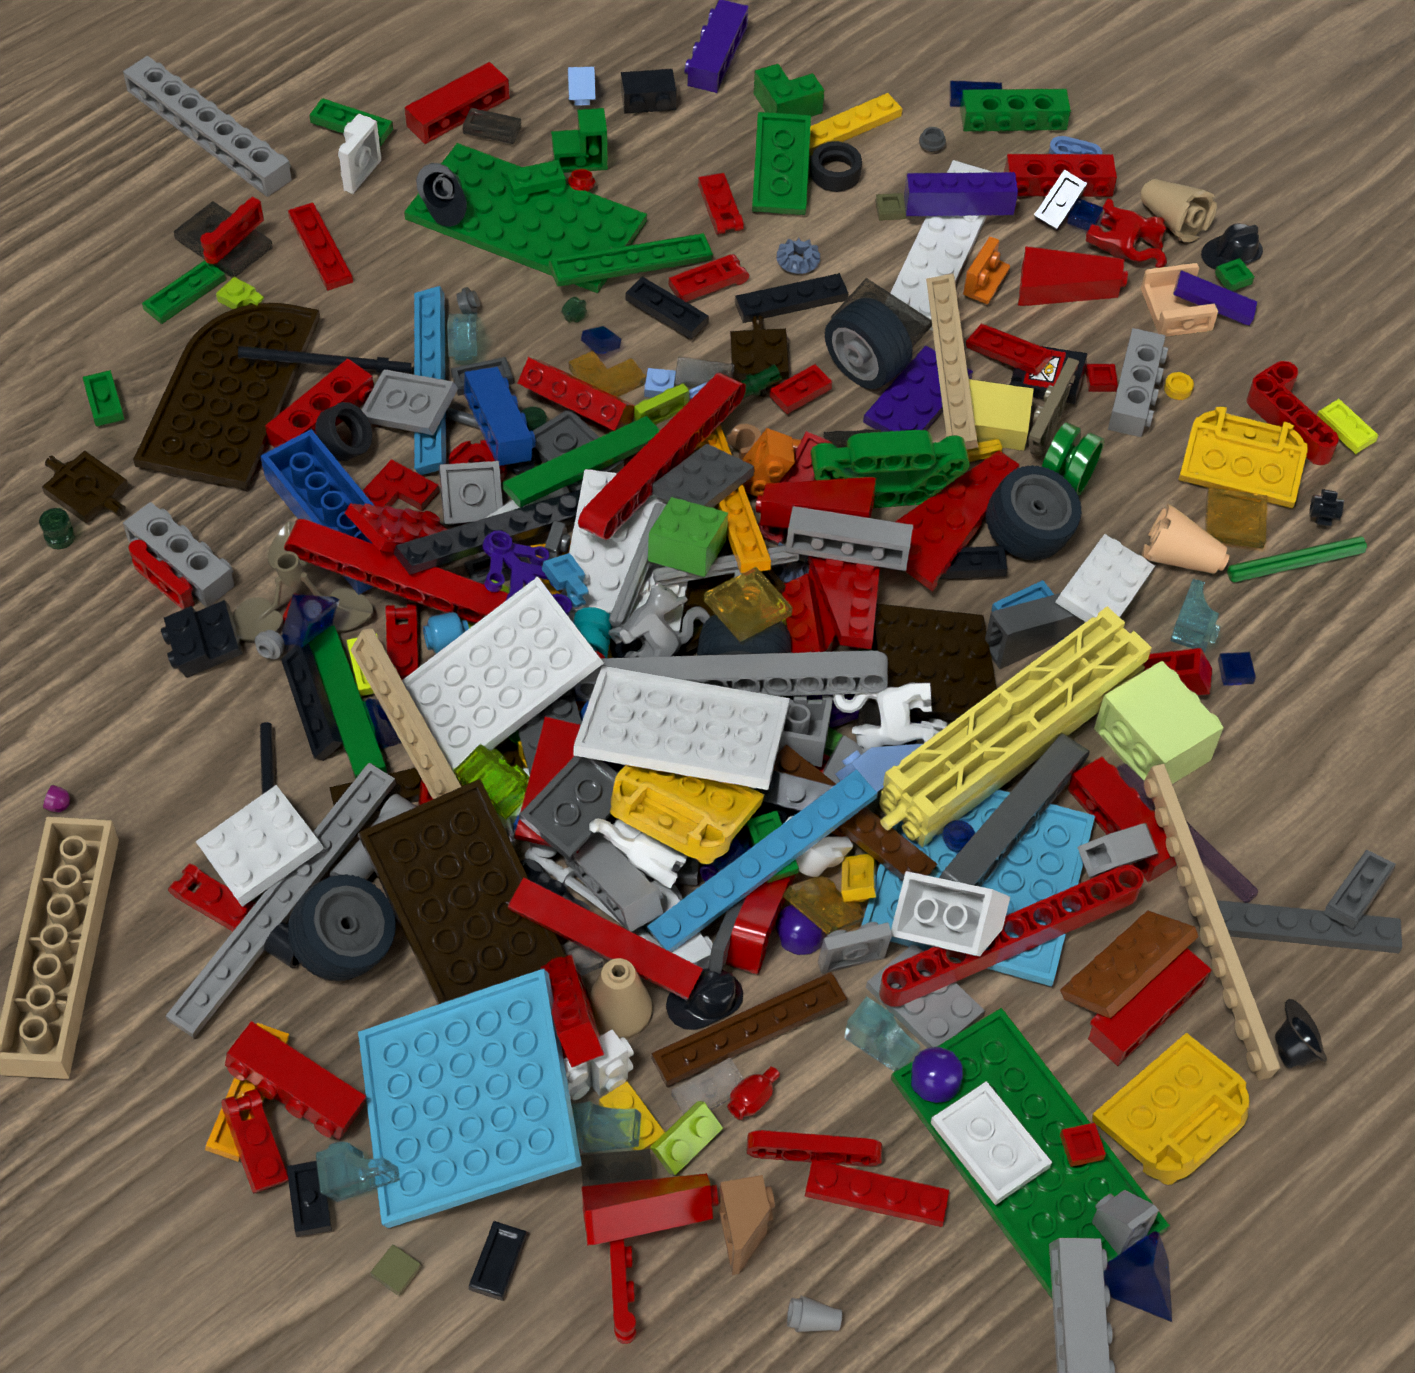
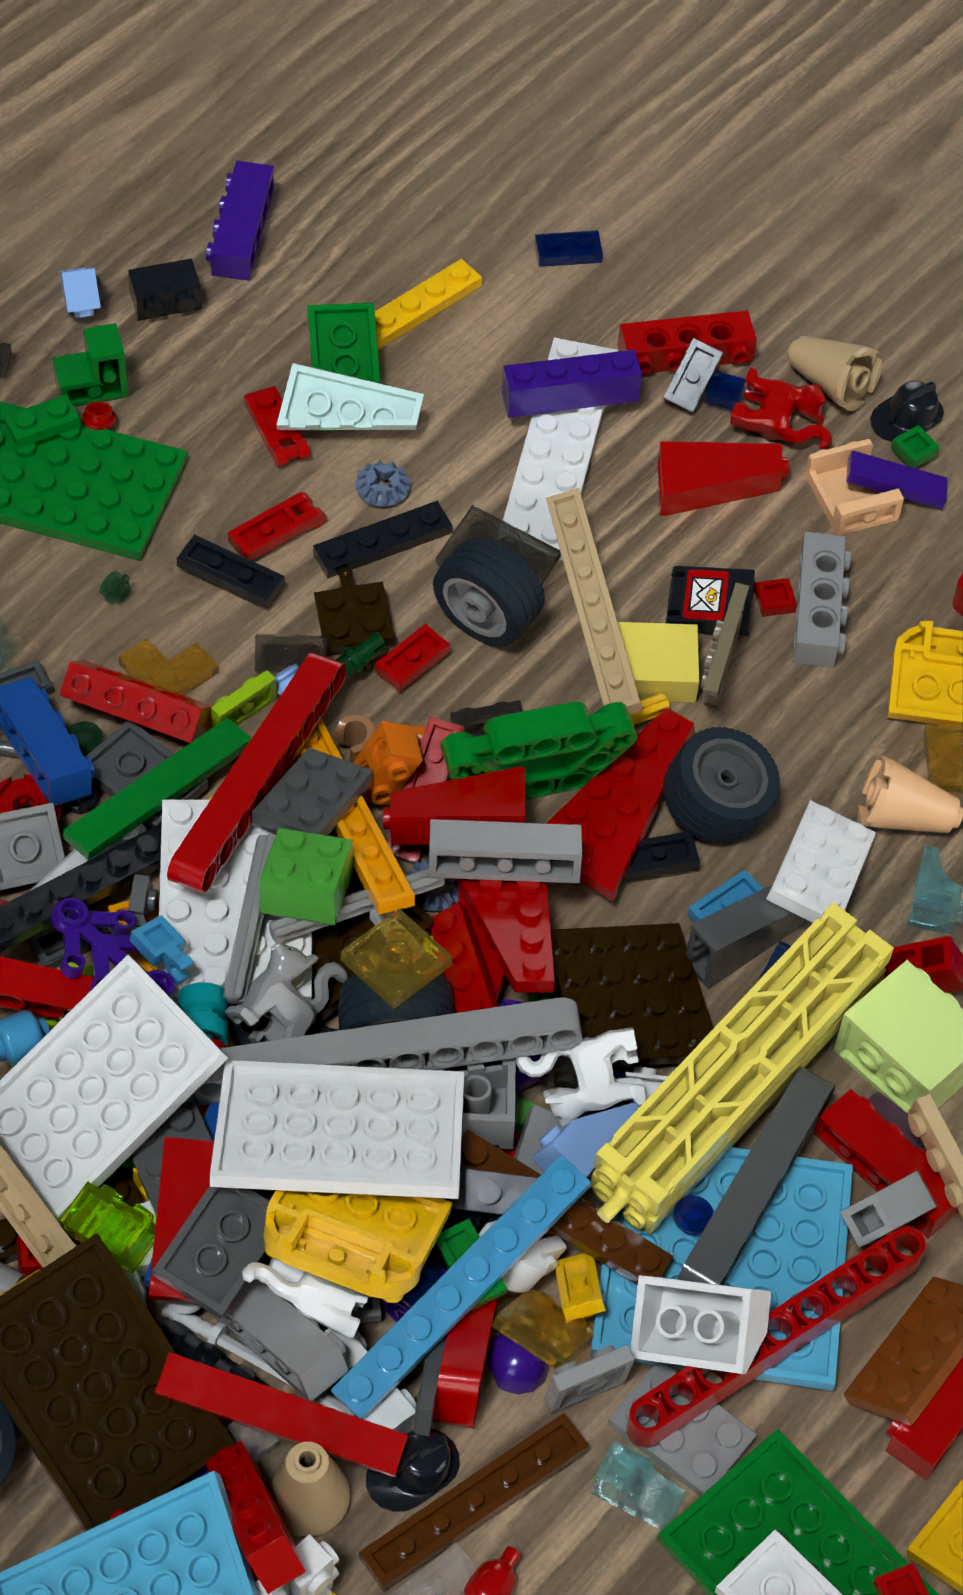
camera: 10 degrees left, 0 degrees up
(601, 339) = (155, 623): clear blue plate -> none
(630, 259) = (175, 514): green tile -> none
(658, 381) = (235, 669): light blue plate -> none
(775, 189) = (340, 402): none -> light aqua wing
(786, 96) = (336, 279): green brick -> none
(836, 152) = (416, 343): black tyre -> none
(890, 206) = (486, 406): olive tile -> none
(912, 398) = (549, 655): dark purple plate -> none
(932, 139) = (524, 313): dark grey plate -> none
(936, 1074) = (712, 1528): dark purple hair -> none
(986, 273) = (616, 480): orange bracket -> none
(1009, 349) = (659, 575): red tile -> none
(1015, 109) = (619, 264): green brick -> none
(1069, 145) = (693, 304): medium blue plate -> none
(1073, 457) = (751, 708): green wheel -> none
(1178, 386) = (869, 596): yellow tile -> none

